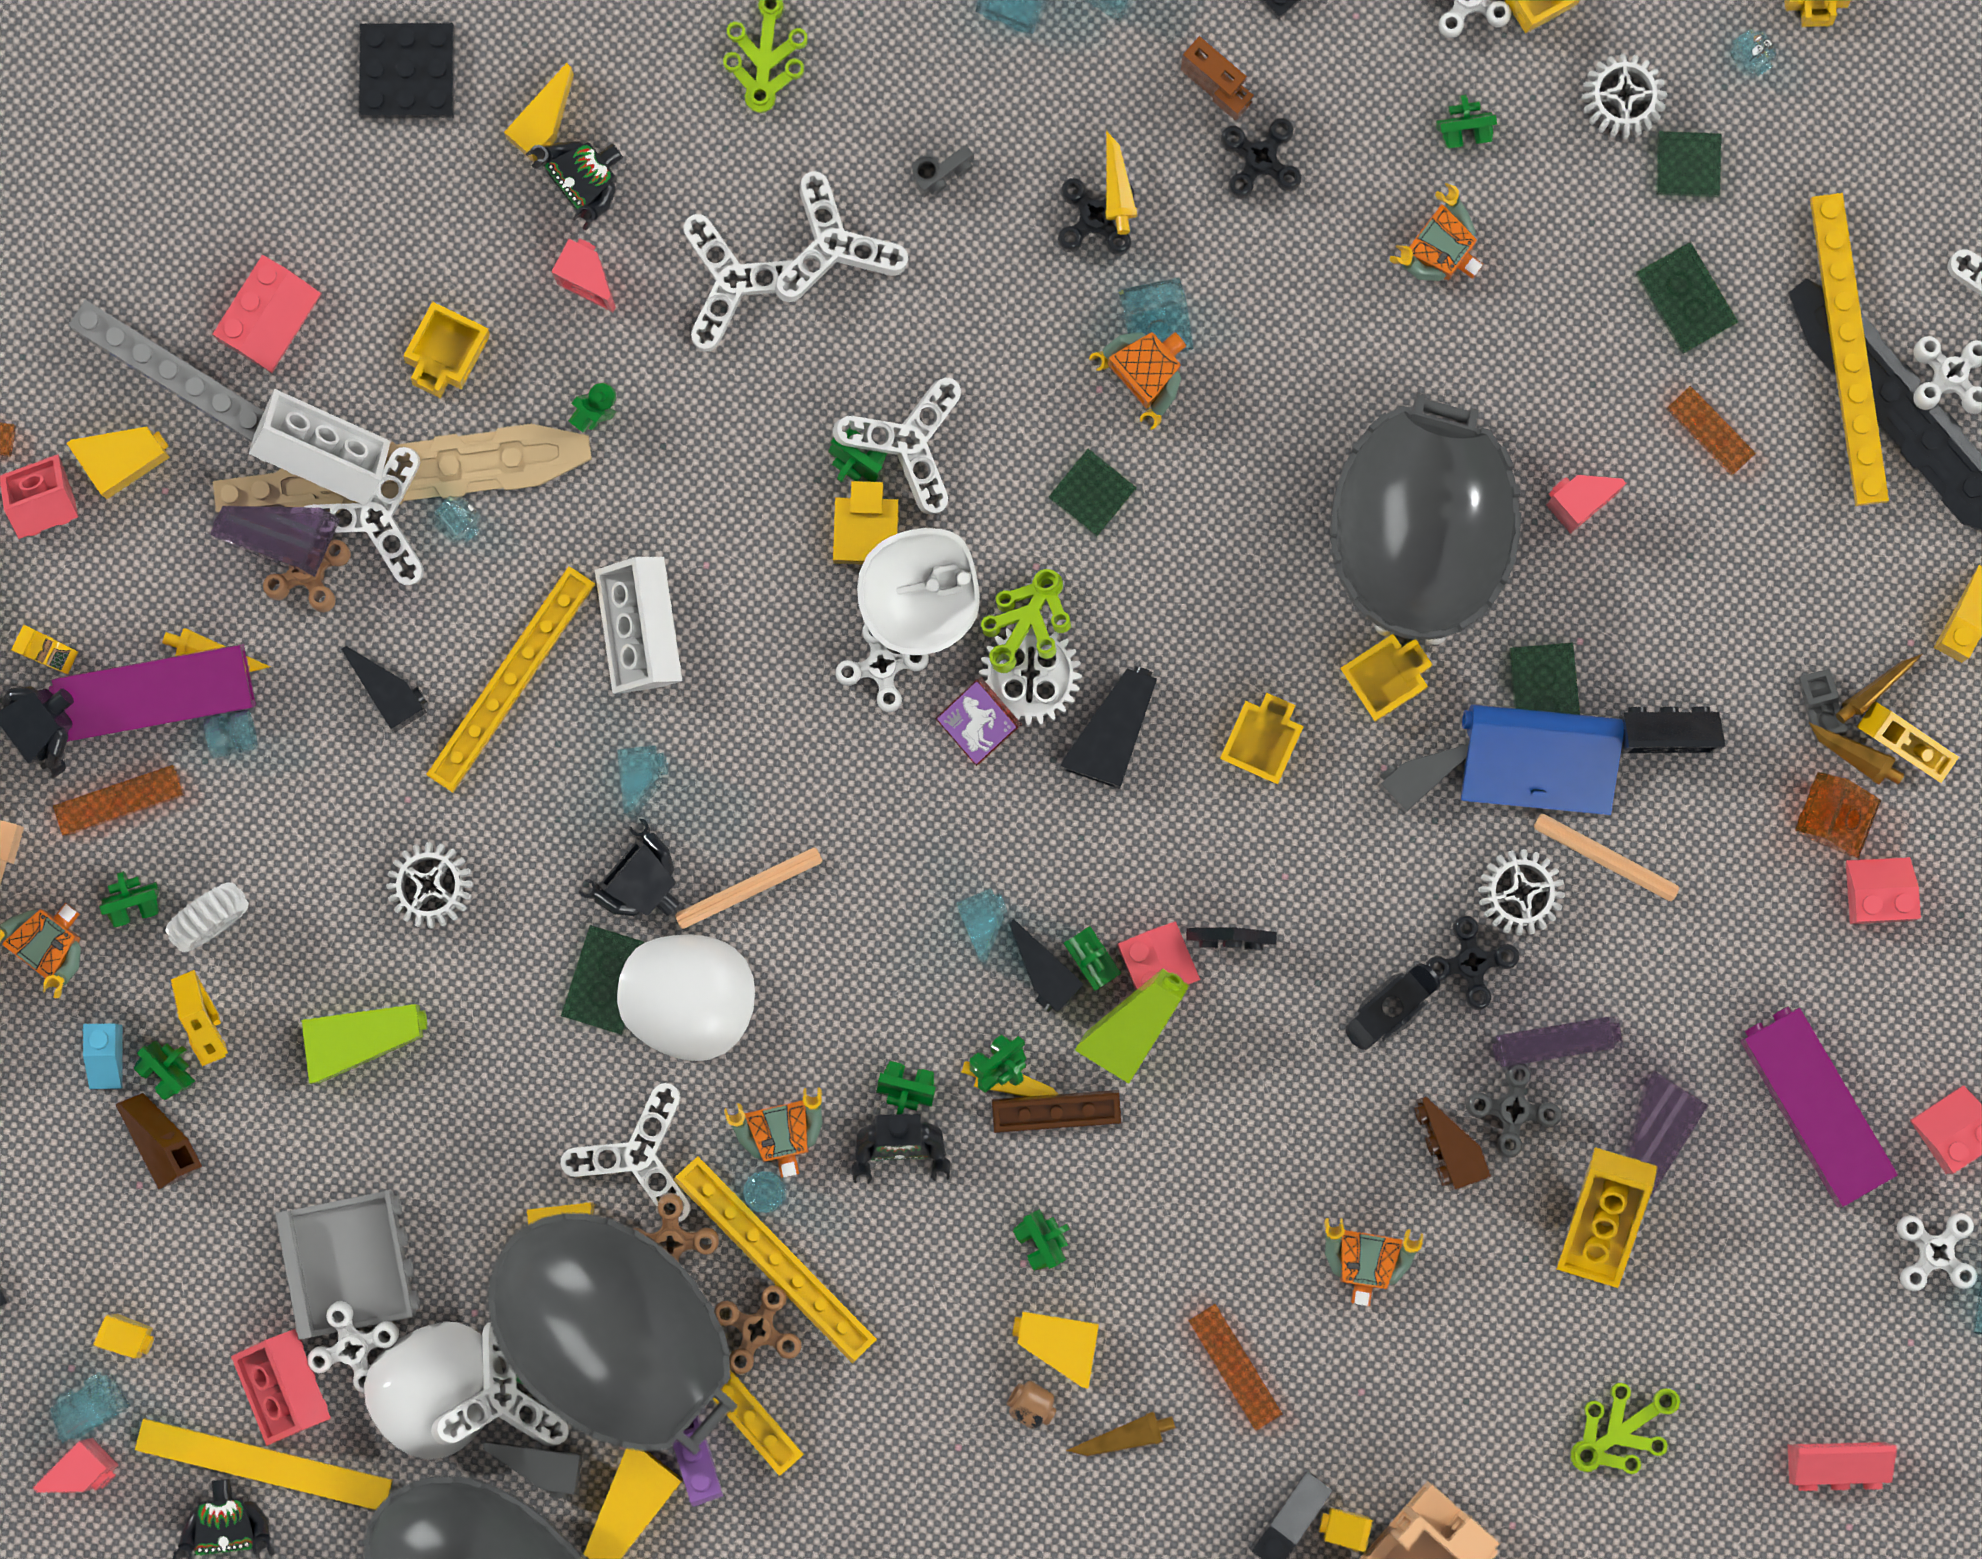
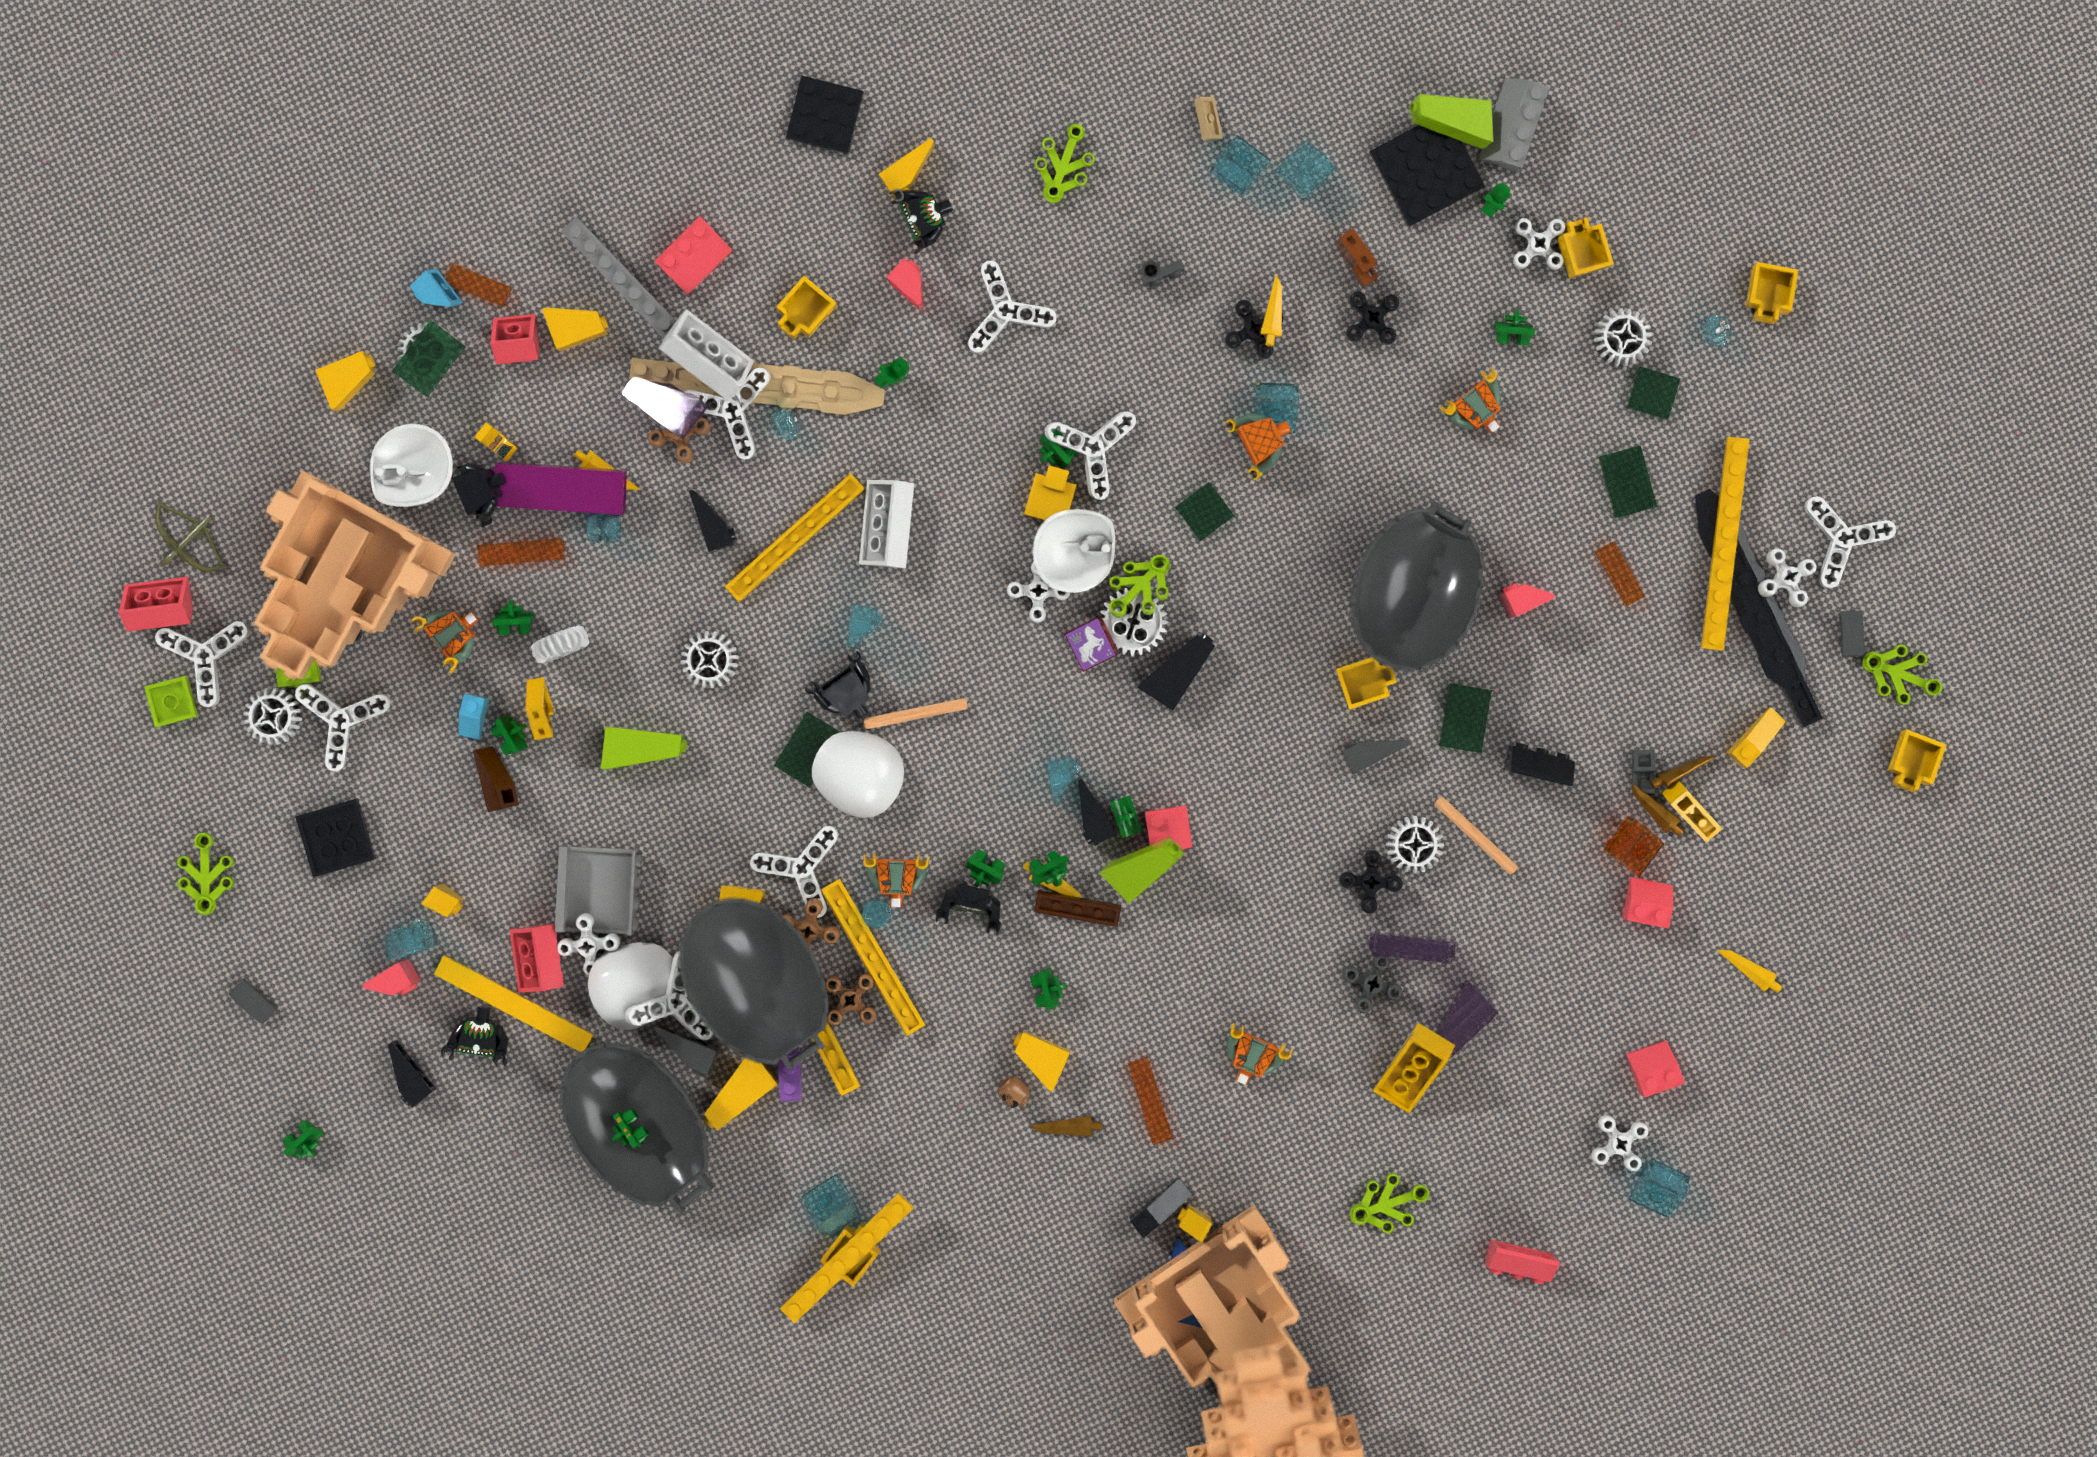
camera: 15 degrees right, 5 degrees up
(819, 247) = (1072, 294): white piece -> none
(1231, 937) = (1219, 827): black plate -> none
(1263, 738) = (1274, 701): yellow piece -> none
(1410, 989) = (1297, 903): black piece -> none
(1457, 1153) = (1329, 1005): reddish brown slope -> none
(1541, 750) = (1445, 754): blue door -> none
(1818, 1106) = (1569, 1031): magenta brick -> none

